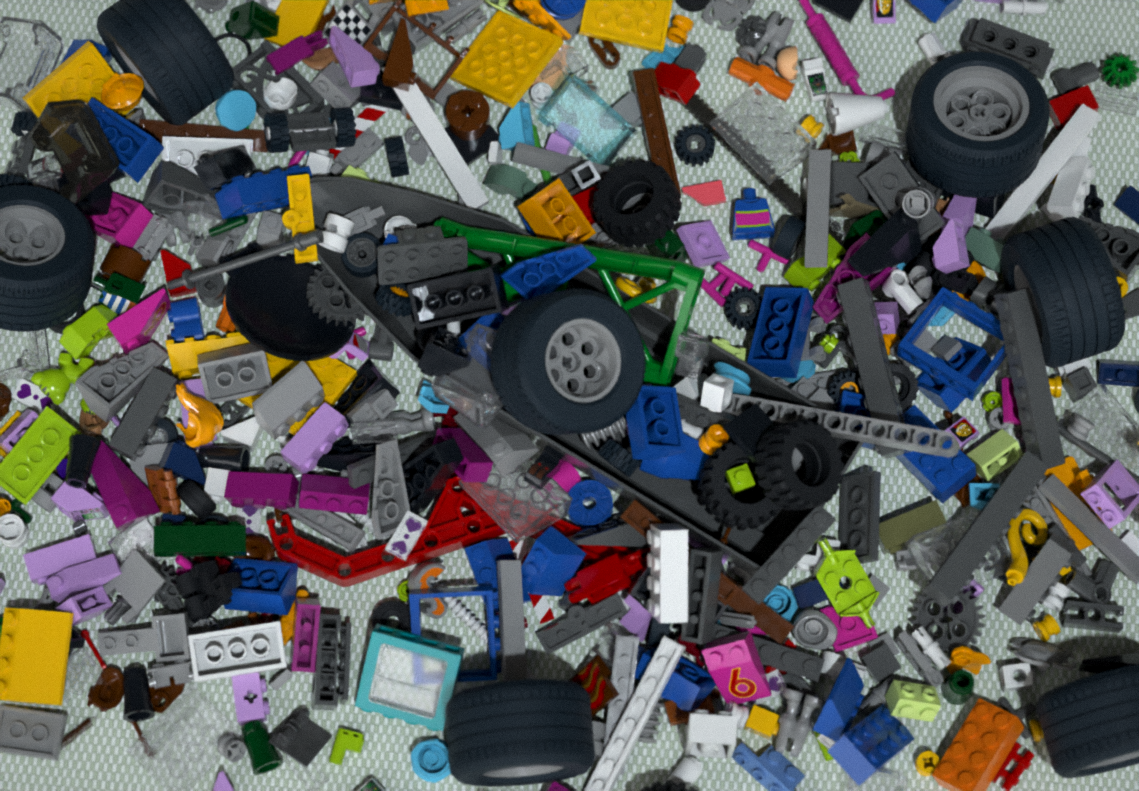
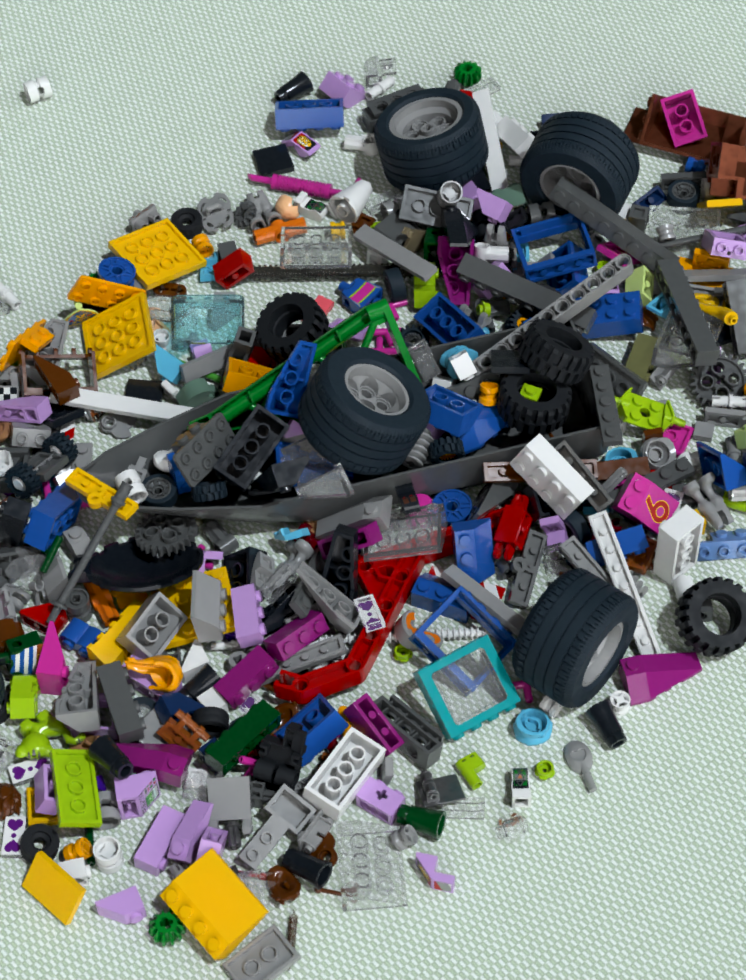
camera: 45 degrees left, 20 degrees down
(79, 527) = (149, 814): dark grey hand -> none
(389, 609) = (404, 670): black tyre -> none
(397, 156) = (110, 435): black bush -> none
(444, 94) = (106, 386): light grey tile -> none
(466, 25) = (72, 342): light grey pin -> none
(468, 103) = (130, 379): reddish brown brick -> none
(654, 121) = (233, 286): reddish brown tile -> none
(684, 144) = (277, 284): black bush -> none
(811, 593) = (632, 437): dark blue slope -> none
(826, 609) = (650, 433): none -> reddish brown tile
(881, 663) = (714, 434): dark grey piece -> none

